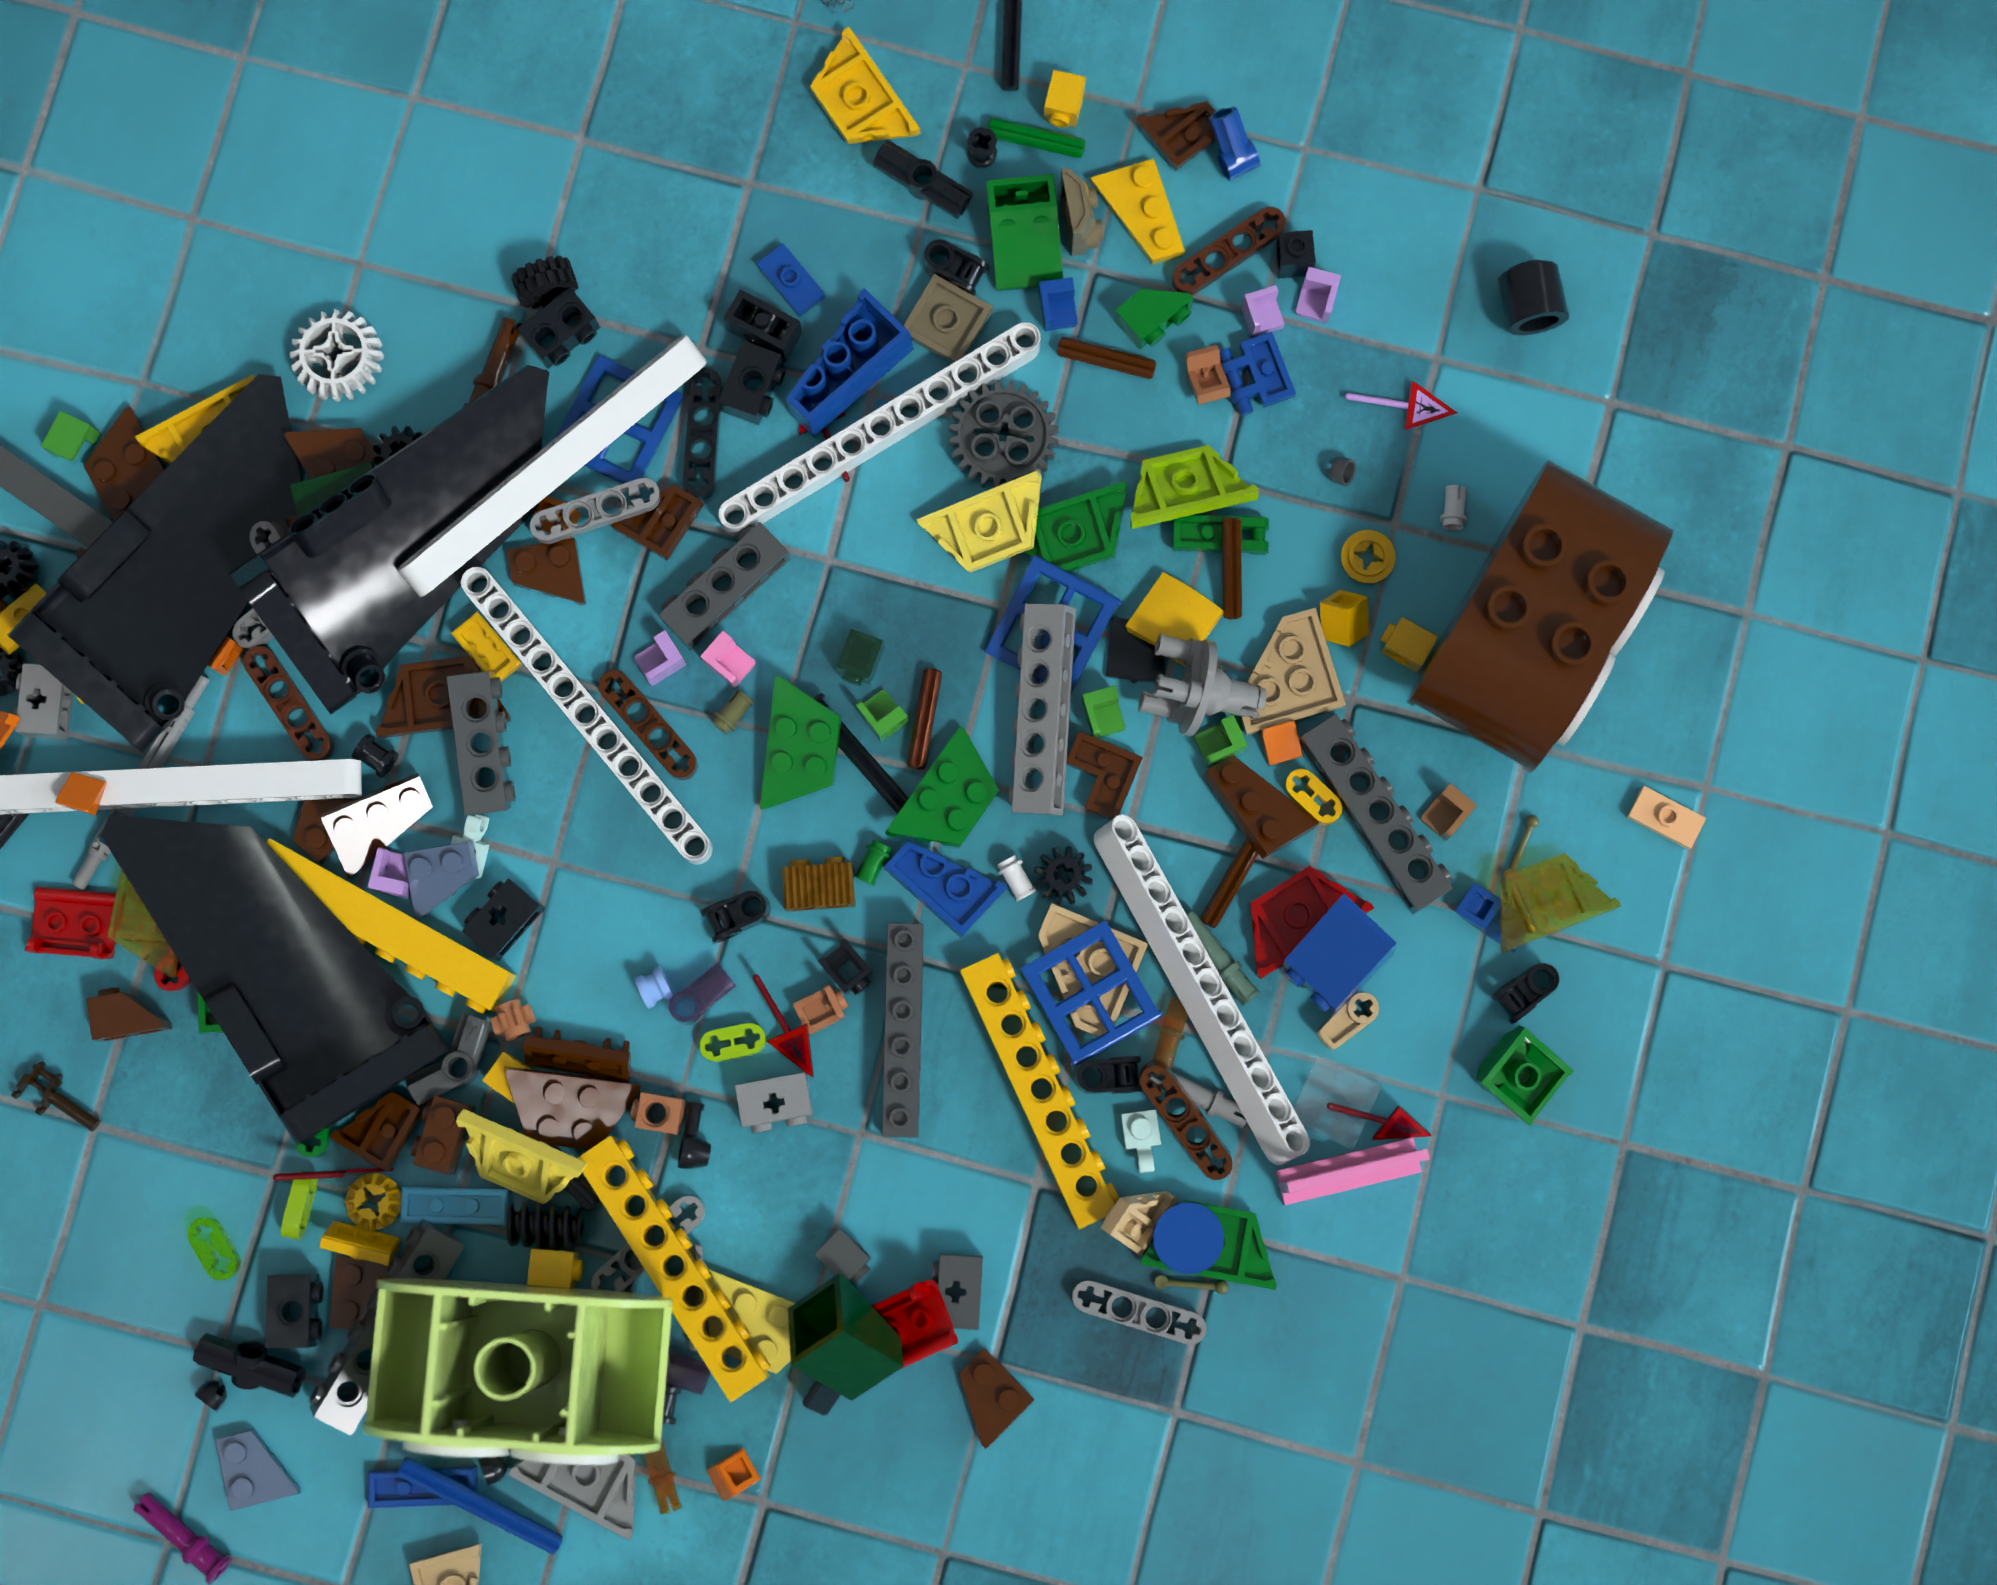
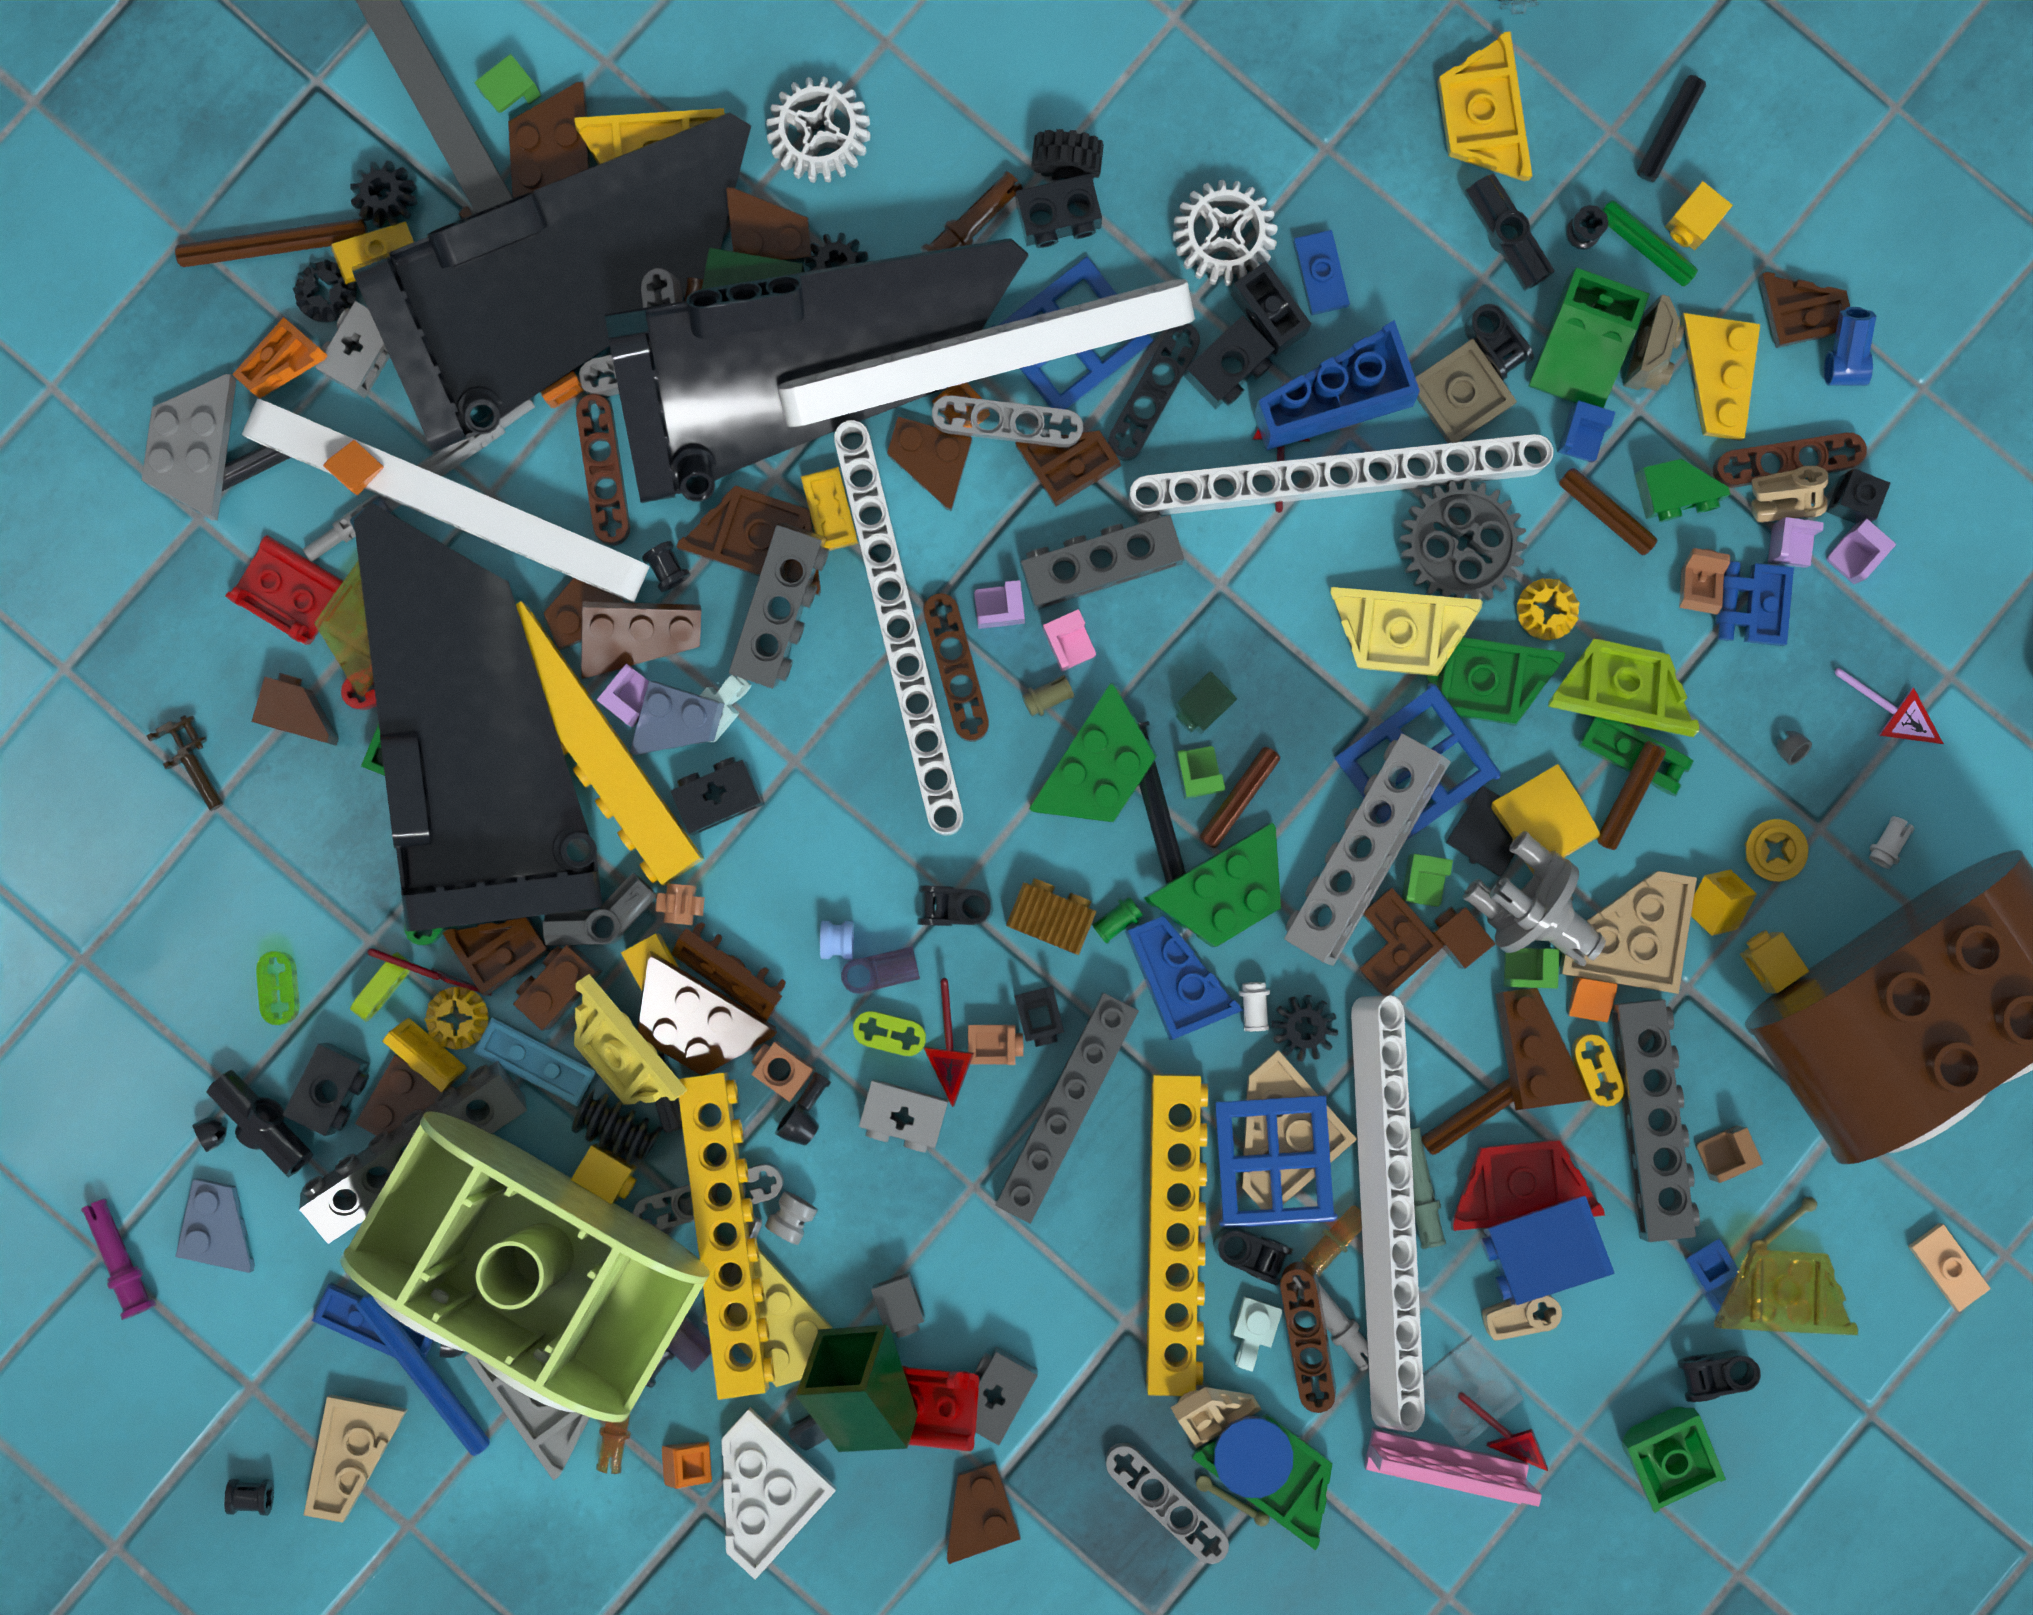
camera: 25 degrees right, 5 degrees up
(676, 271) = (1215, 219): none -> white gear
(723, 1229) = (790, 1219): none -> light grey wheel
(809, 1464) = (766, 1492): none -> white plate
(1086, 467) = (1532, 617): none -> yellow gear
(1152, 742) = (1461, 936): none -> reddish brown brick
(1241, 276) = (1790, 494): none -> tan piece

